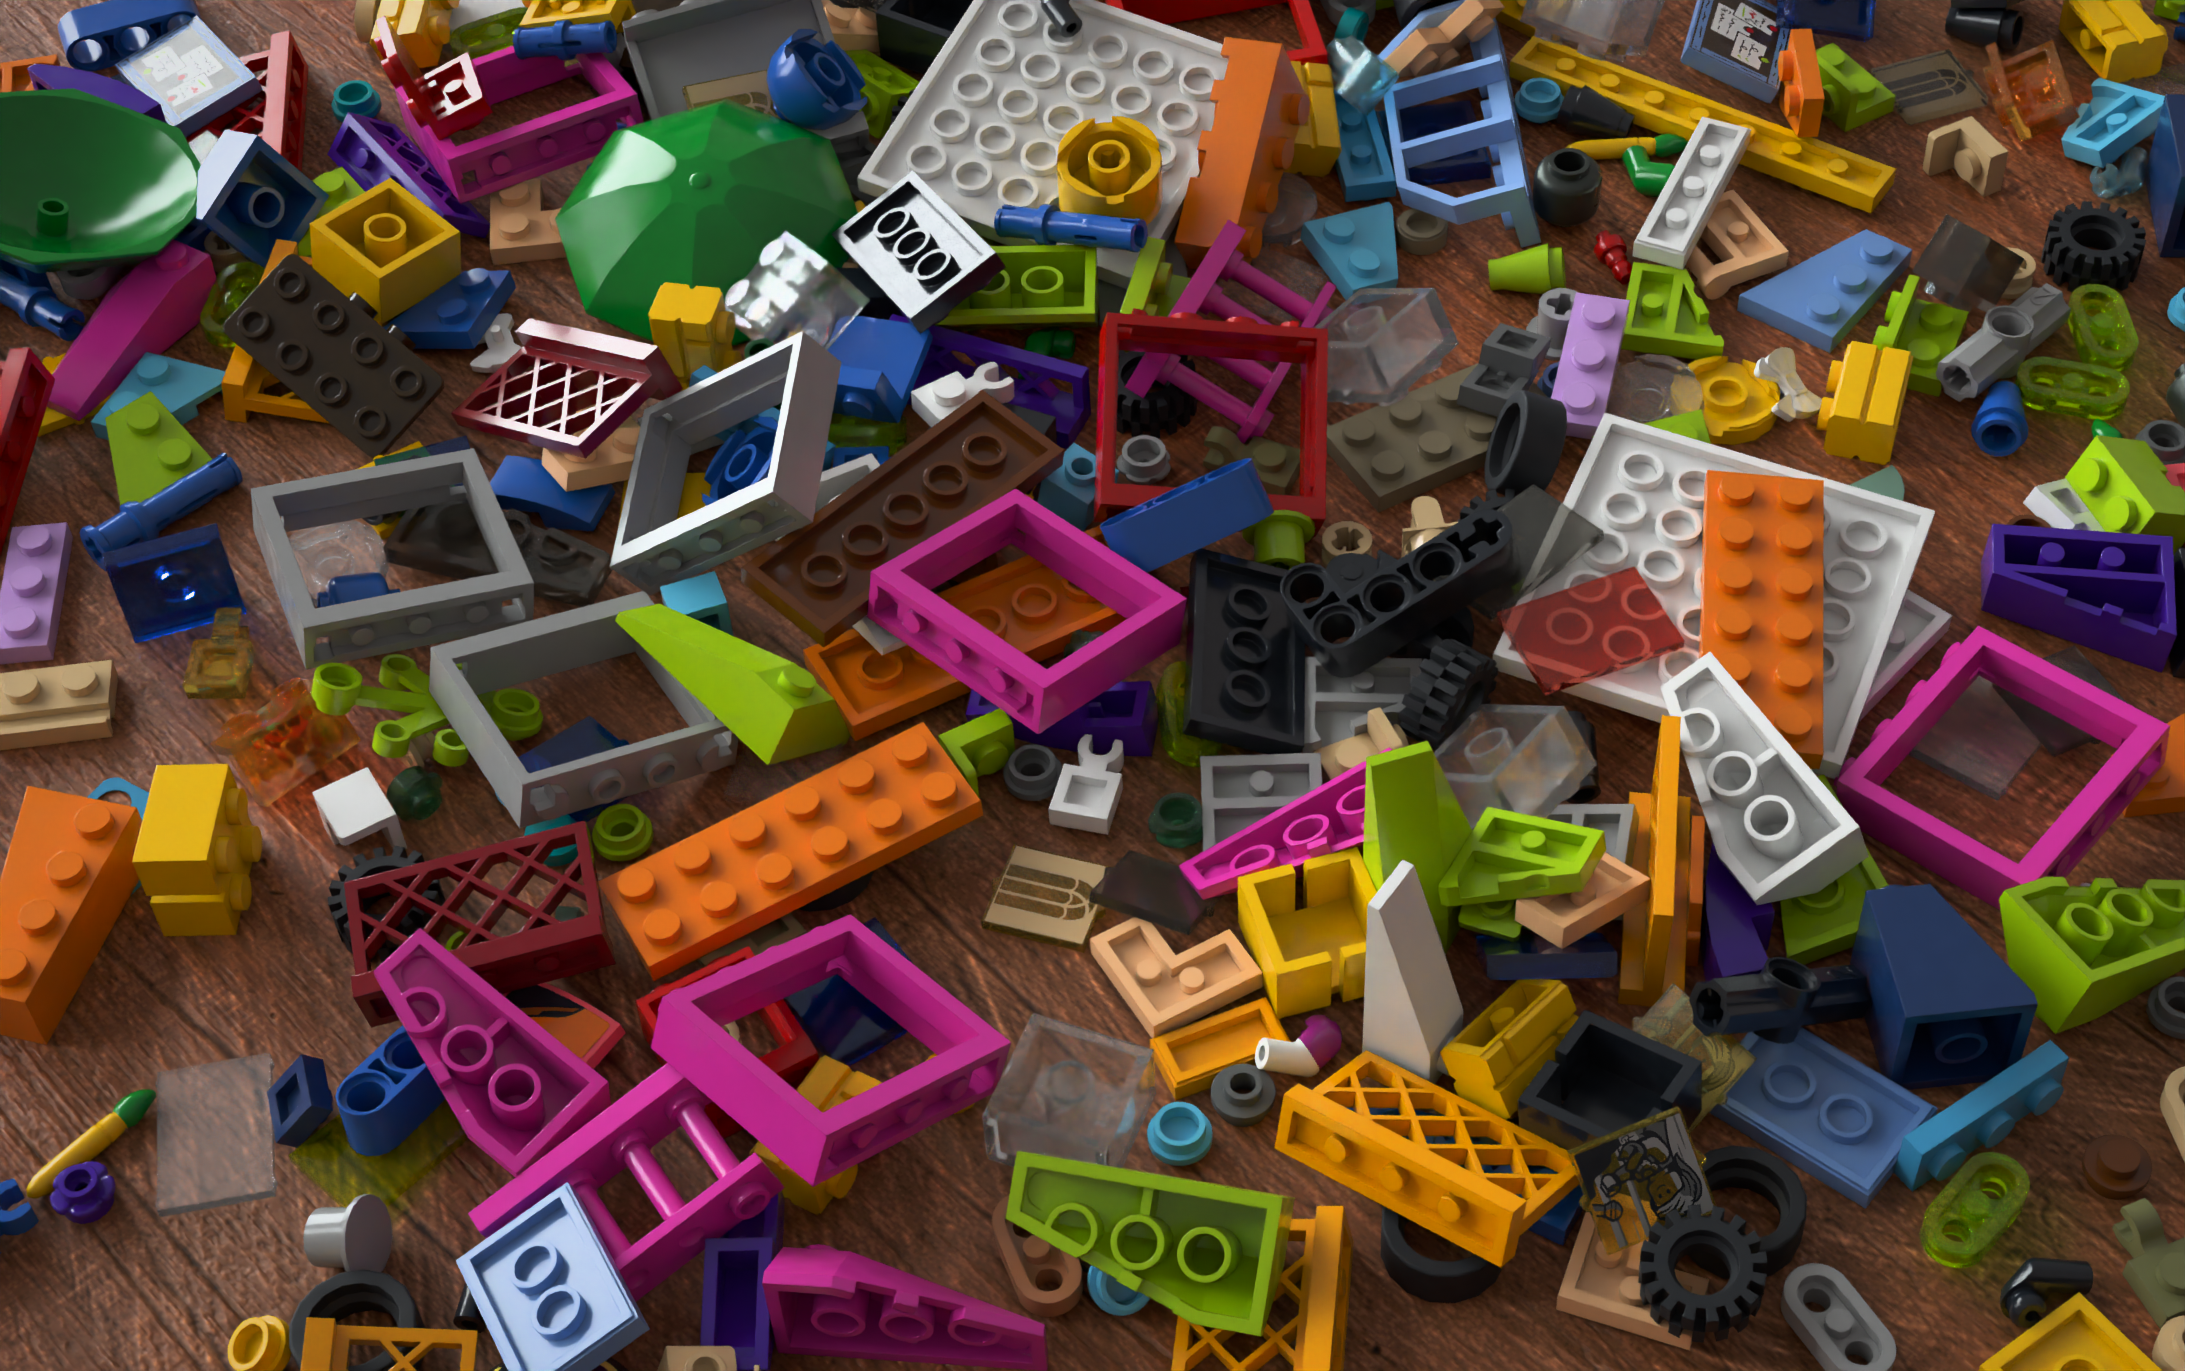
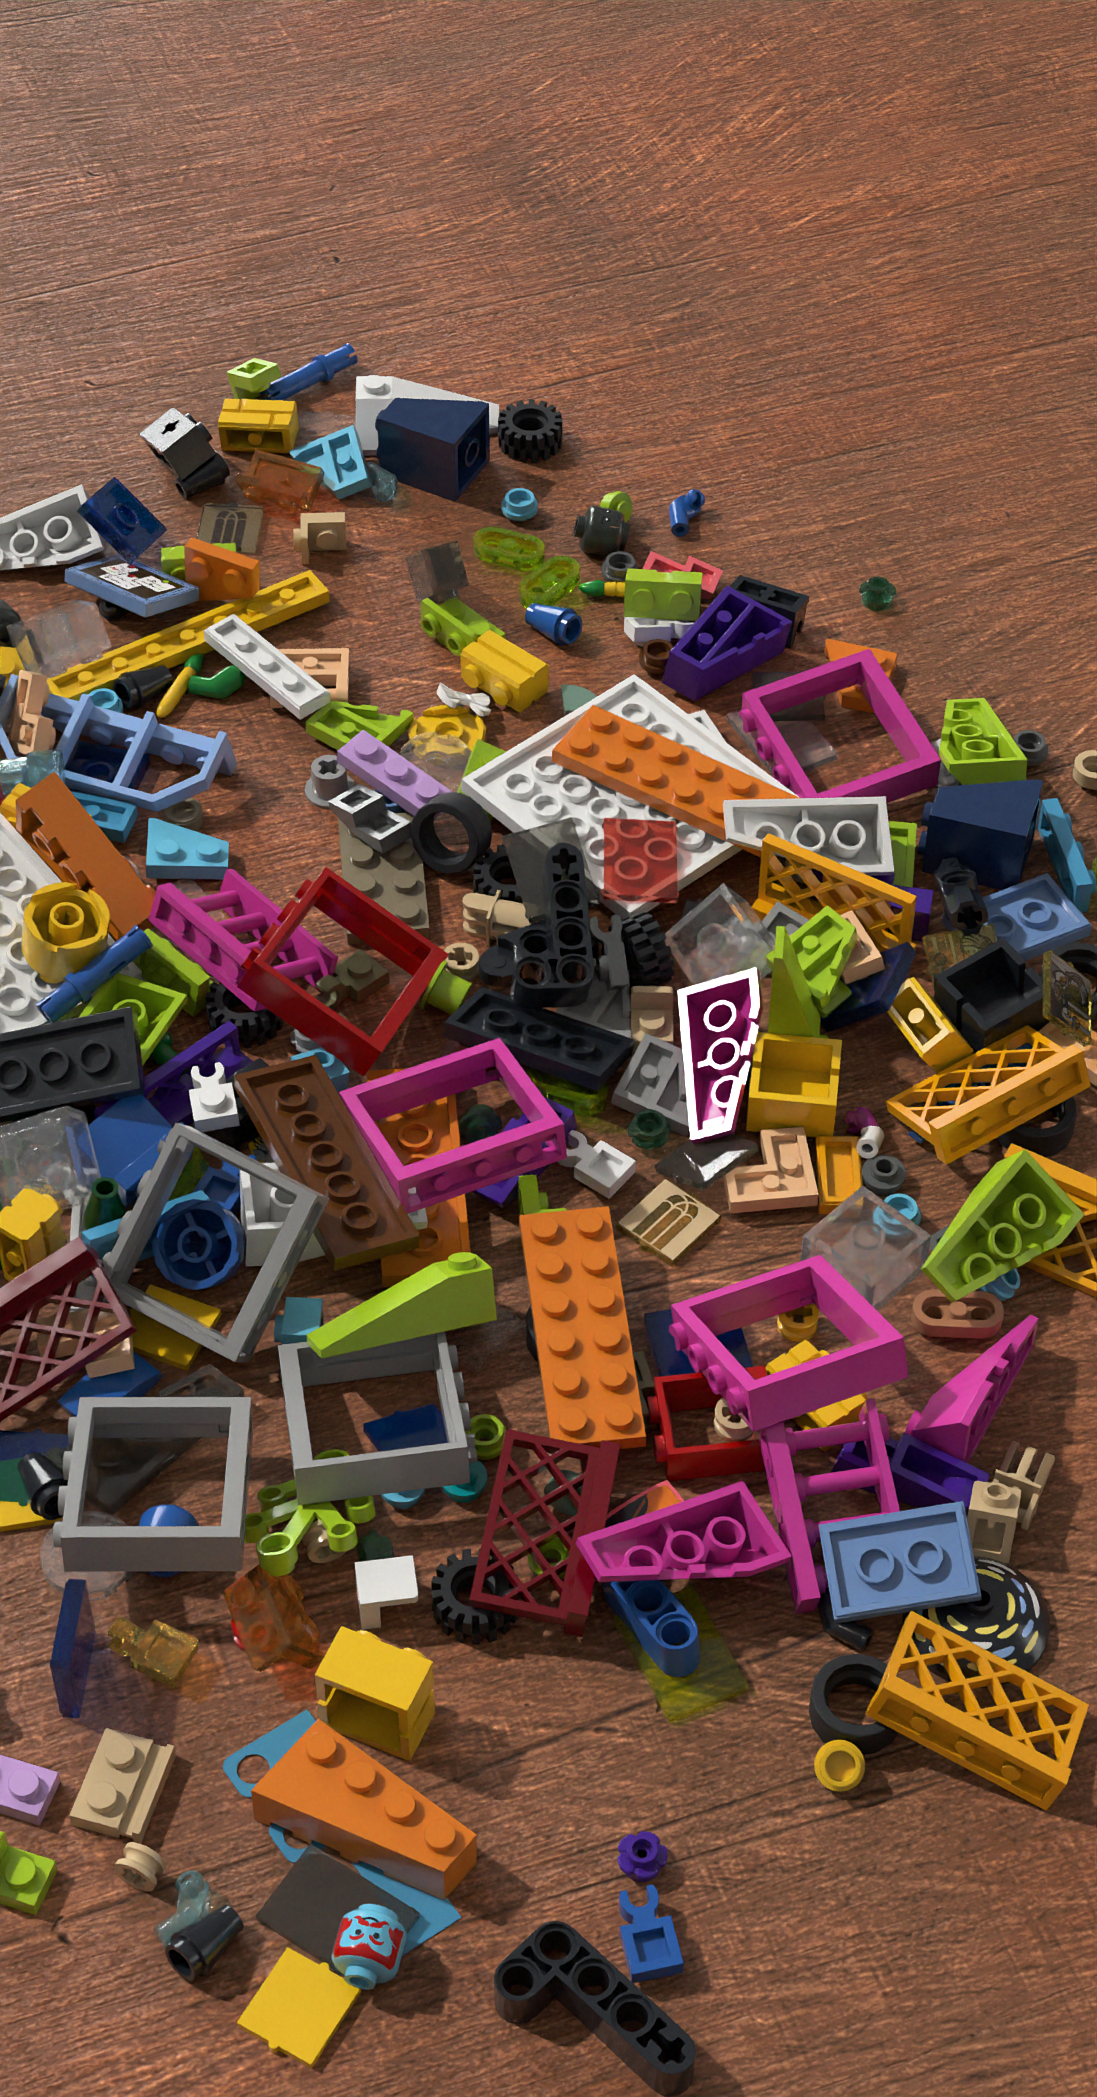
camera: 70 degrees left, 0 degrees up
(93, 1141) = (599, 1849): yellow piece -> none
(215, 1135) = (623, 1763): clear piece -> none
(299, 1101) = (635, 1692): dark blue plate -> none
(350, 1236) = (773, 1687): light grey piece -> none
(1032, 772) = (564, 1182): dark grey plate -> none
(1189, 516) = (423, 1010): blue beam -> none
(1384, 343) = (302, 853): clear brick -> none
(1392, 662) = (612, 963): none -> dark grey plate
(1408, 981) = (876, 1043): white wedge -> none
(1529, 270) = (272, 773): lime cone -> none
(1567, 187) = (215, 714): pearl dark grey head -> none
(1612, 251) = (281, 732): red piece -> none
(1829, 291) = (386, 649): medium blue wing -> none
(2002, 342) = (496, 592): light grey piece -> none
(2117, 238) = (438, 507): black tyre -> none

